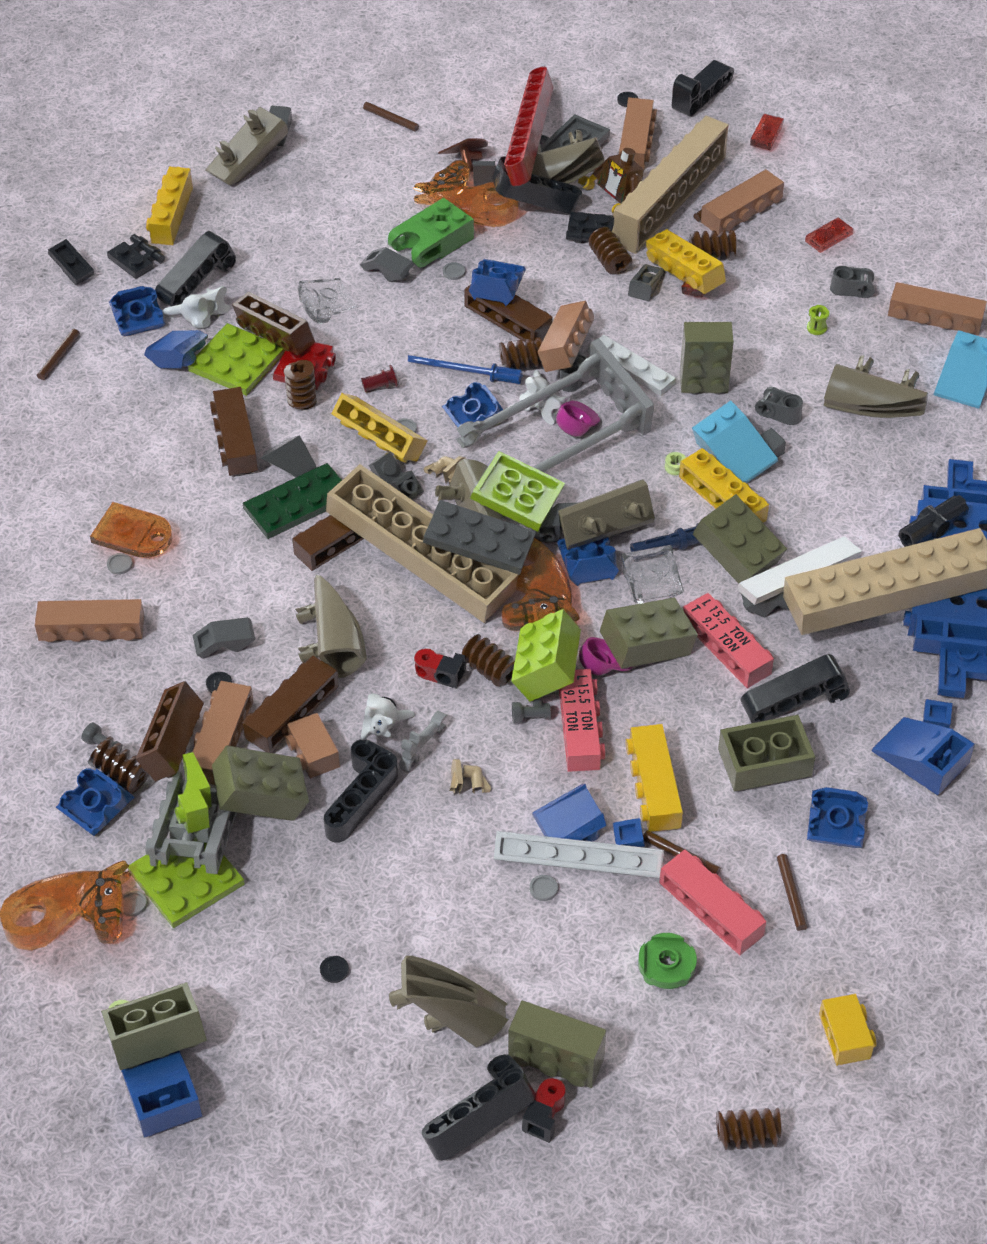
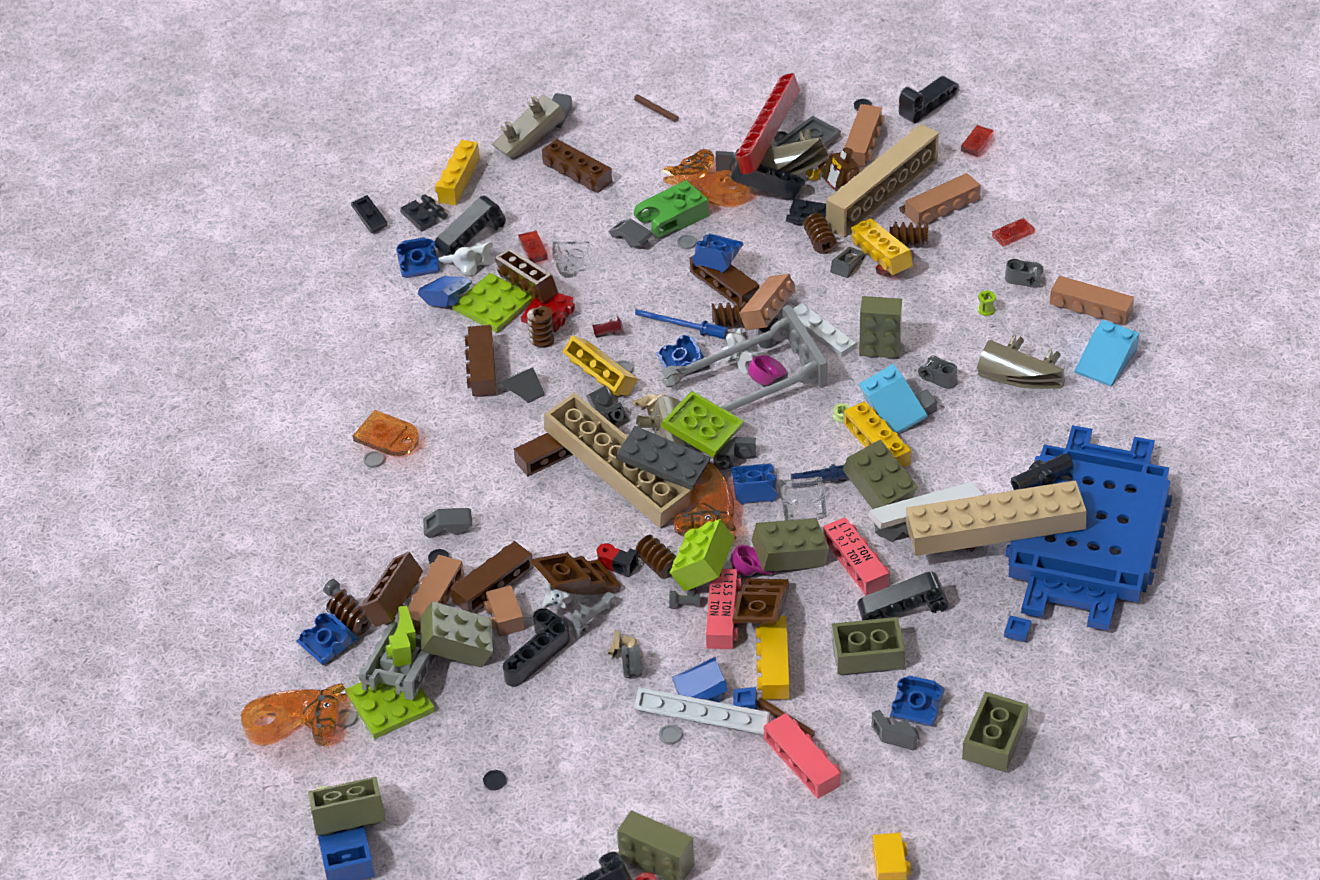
camera: 10 degrees right, 5 degrees down
(58, 354) = (348, 289): reddish brown bar -> none
(89, 620) = (343, 500): nougat brick -> none
(273, 288) = (532, 246): none -> clear red plate
(292, 501) = (518, 421): dark green plate -> none
(310, 189) = (577, 165): none -> reddish brown brick
(338, 631) = (537, 525): dark tan piece -> none
(397, 693) = (576, 574): none -> reddish brown slope
(449, 1000) = (577, 805): dark tan piece -> none
(465, 147) = (712, 137): copper shield -> none
(481, 797) = (634, 660): none -> dark grey wheel
(607, 514) = (773, 449): dark tan piece -> none
(627, 707) = (761, 601): none -> reddish brown slope
(664, 975) = (753, 807): bright green plate -> none
(792, 893) = (869, 755): reddish brown bar -> none
(826, 863) = (898, 734): none -> dark grey slope
(925, 752) = (1001, 657): blue slope -> none
(941, 850) = (995, 731): none -> olive brick

